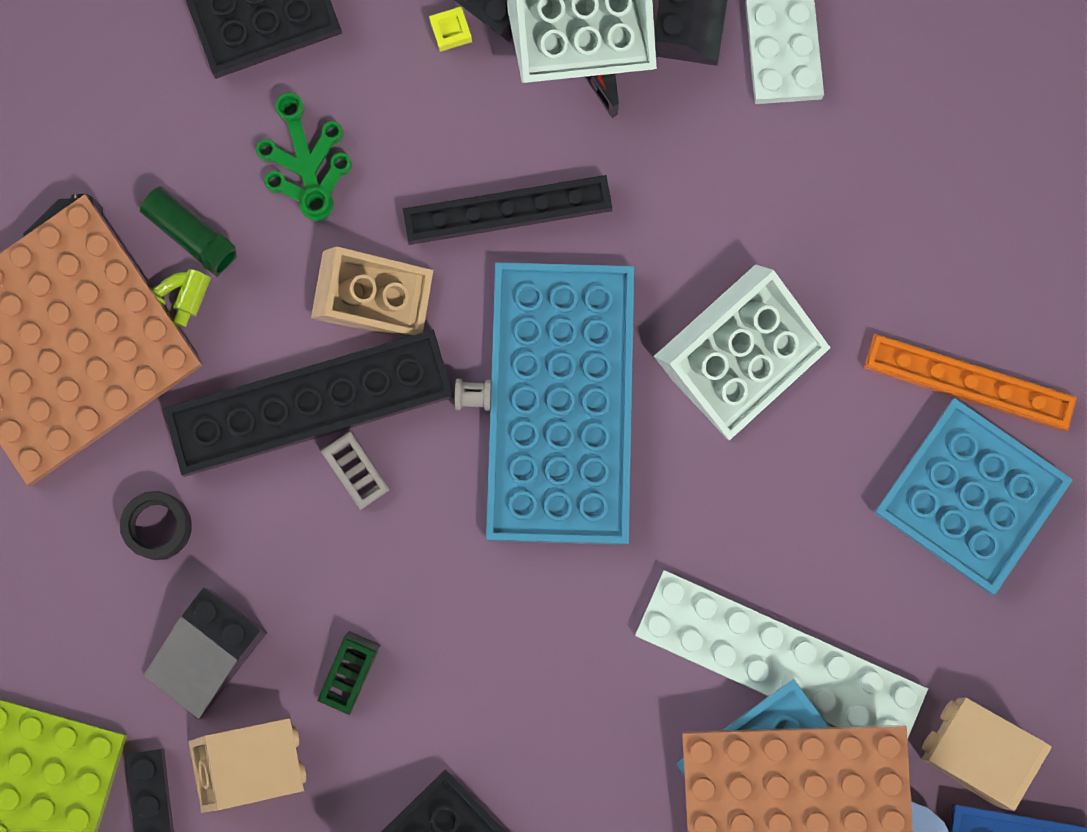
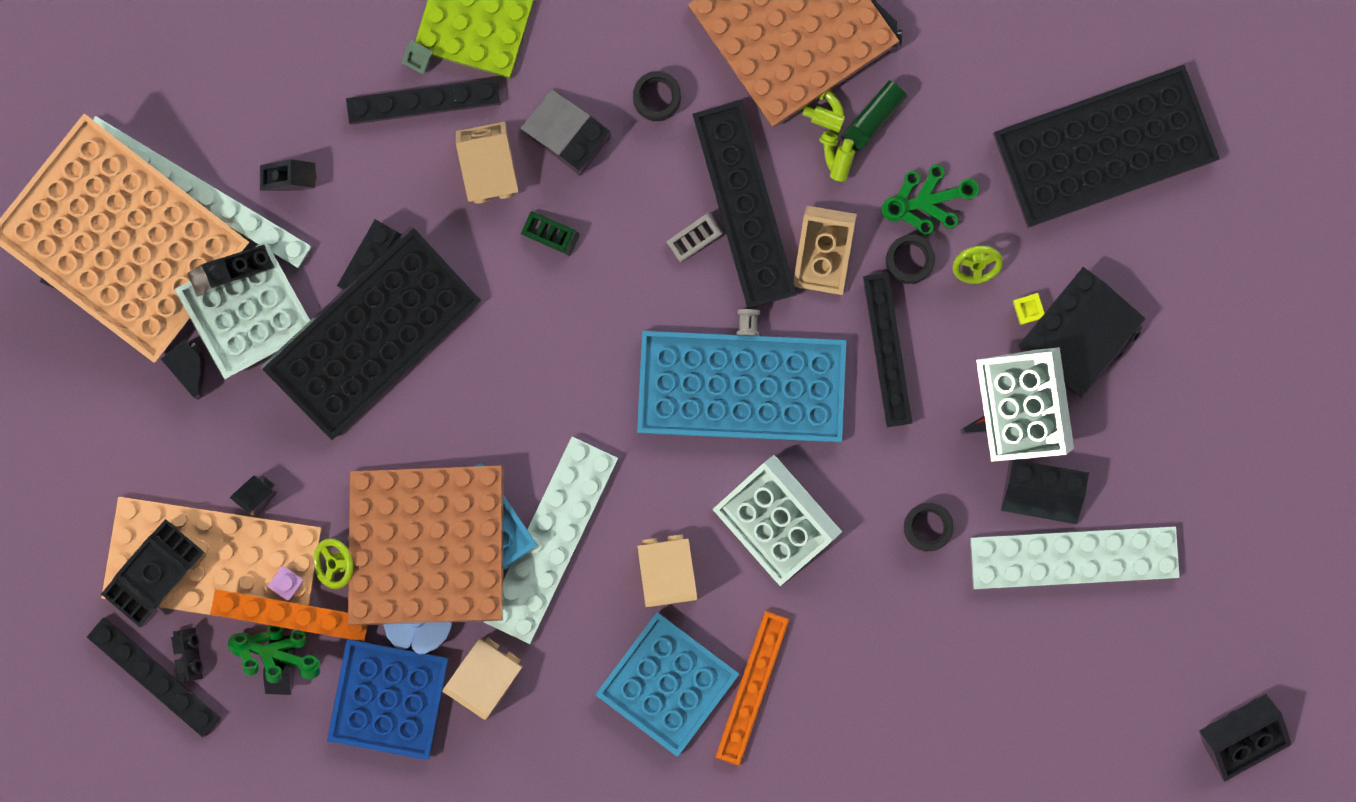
camera: 90 degrees right, 5 degrees up
(256, 273) = (841, 162): none -> lime plant
(384, 94) = (976, 259): none -> lime piece
(384, 155) = (915, 240): none -> black tyre
(751, 129) = (947, 523): none -> black tyre
(823, 496) = (667, 571): none -> tan slope

